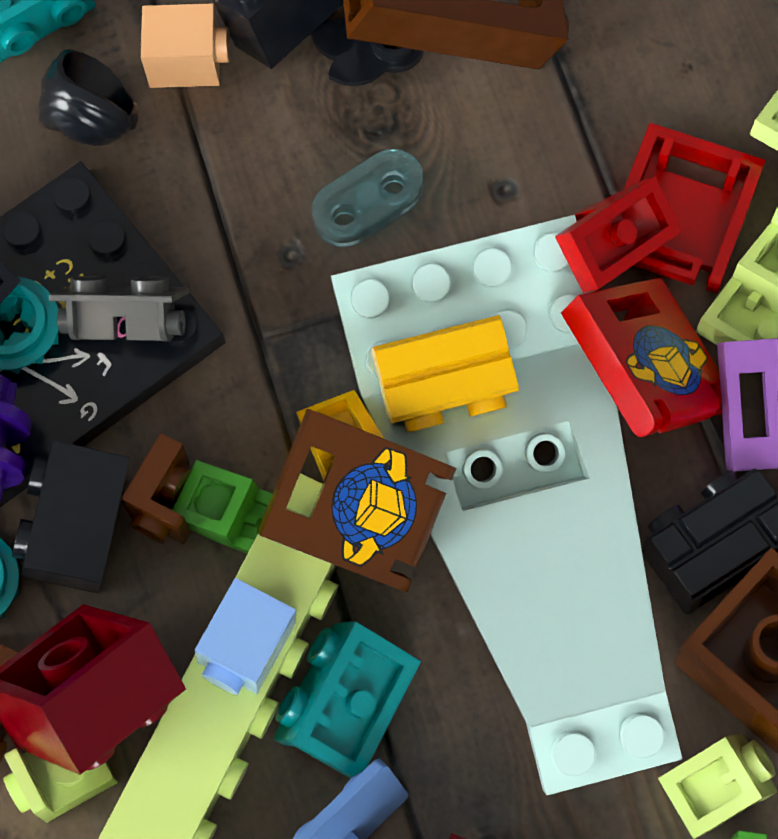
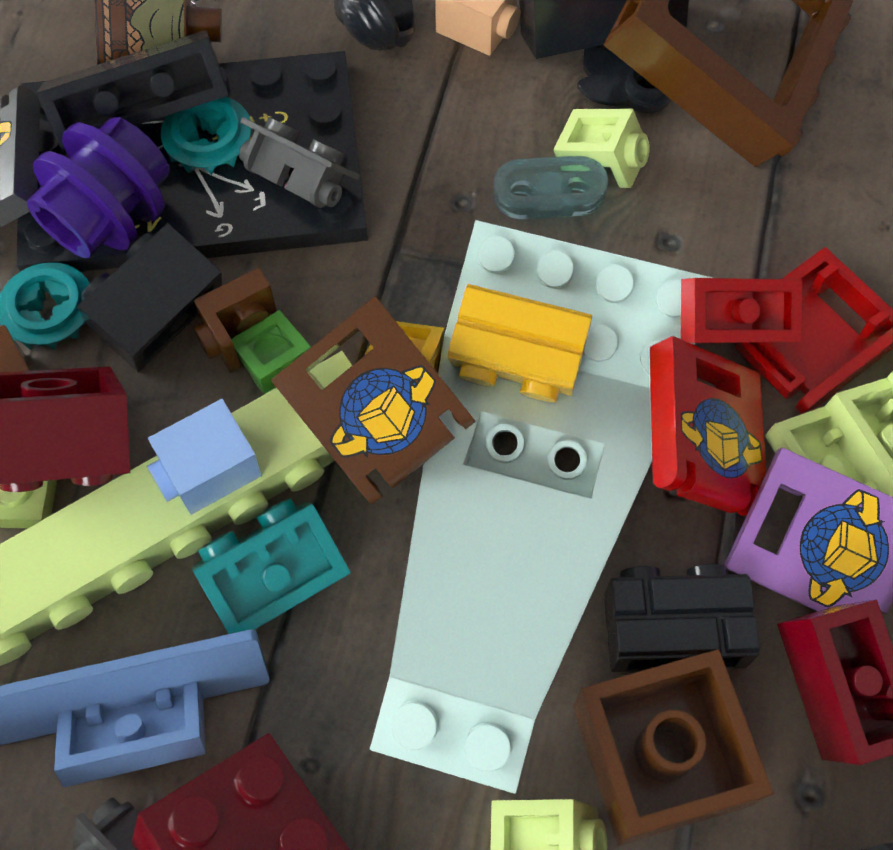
camera: 25 degrees right, 5 degrees down
(391, 120) = (608, 137): none -> yellowish green bracket

